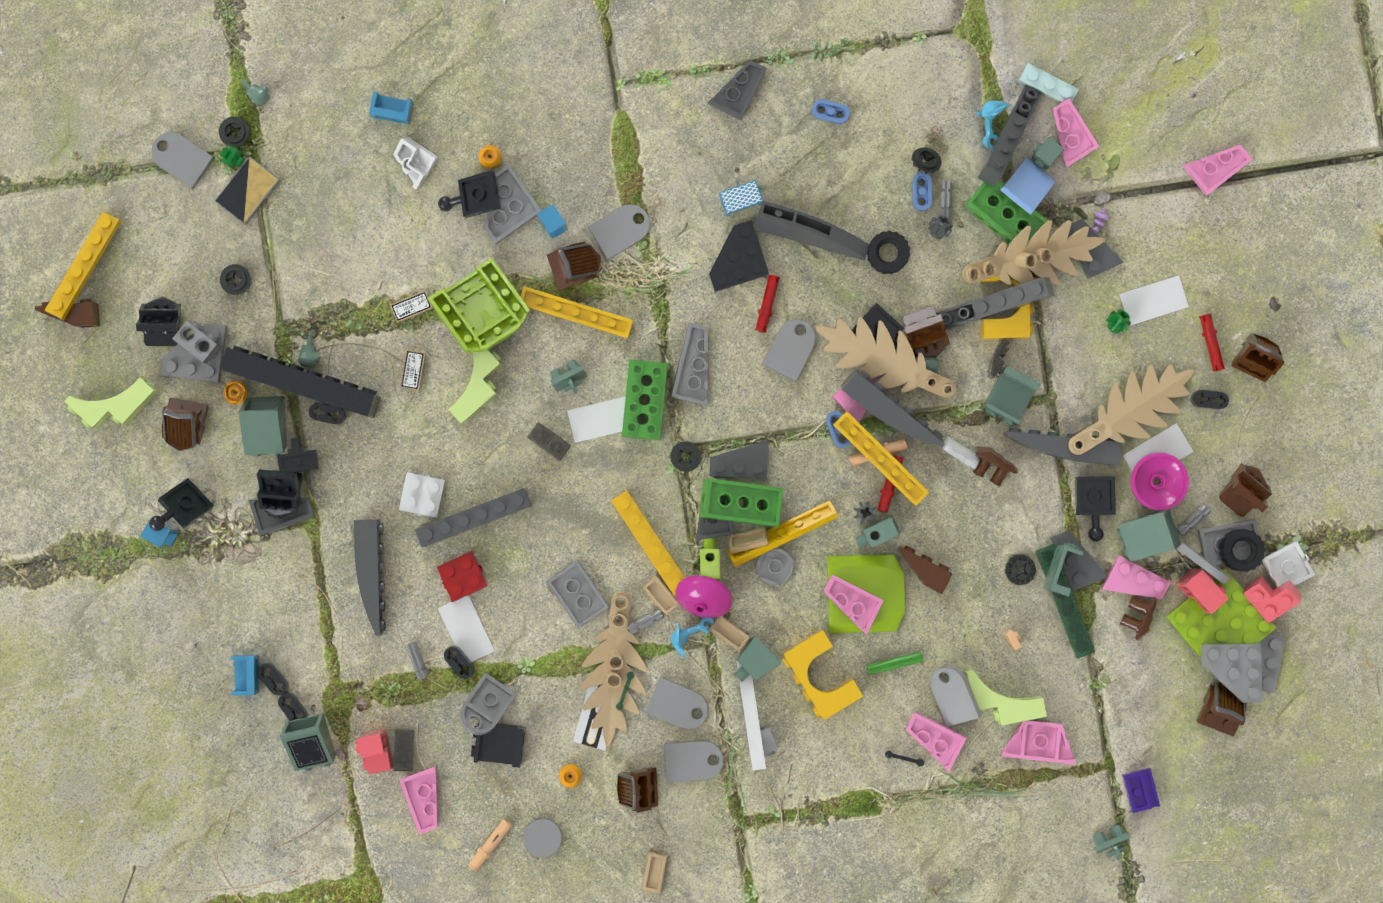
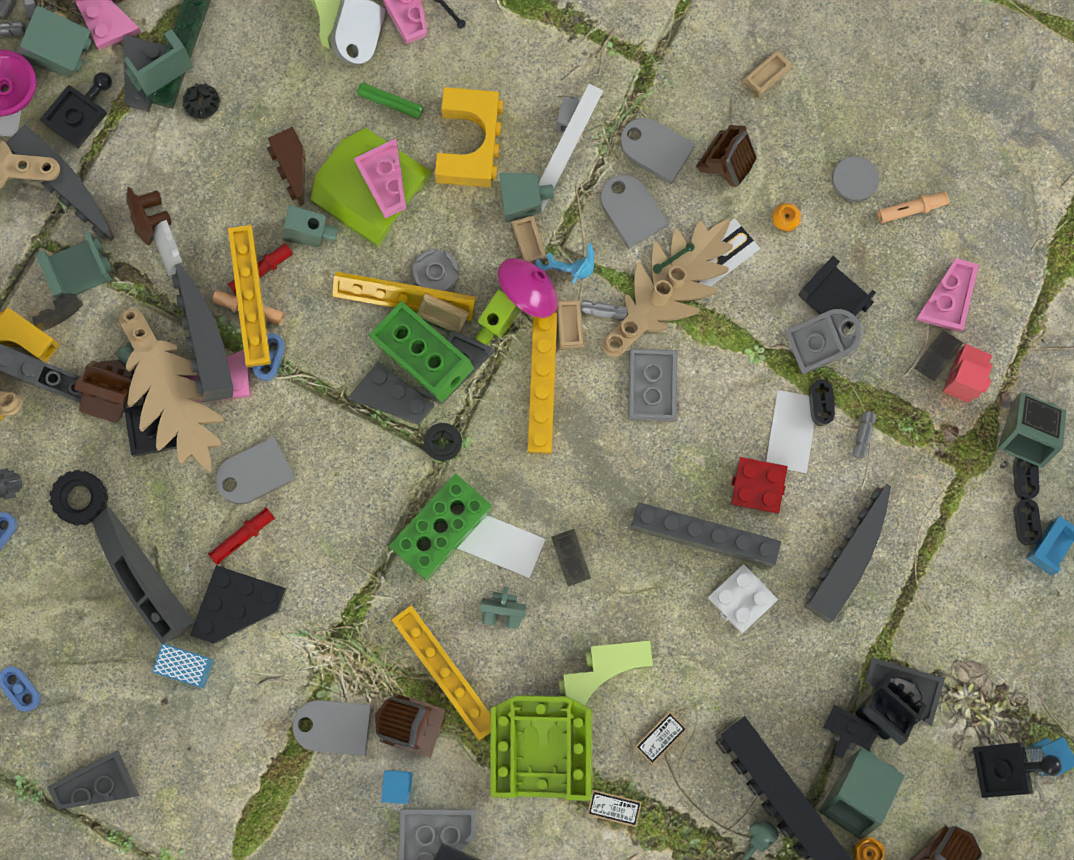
camera: 145 degrees left, 10 degrees down
(328, 409) = (788, 753): black beam -> none
(691, 374) = (373, 521): light grey wing -> none
(860, 515) = (306, 265): dark grey gear -> none
(1013, 639) = (260, 41): light nougat plate -> none

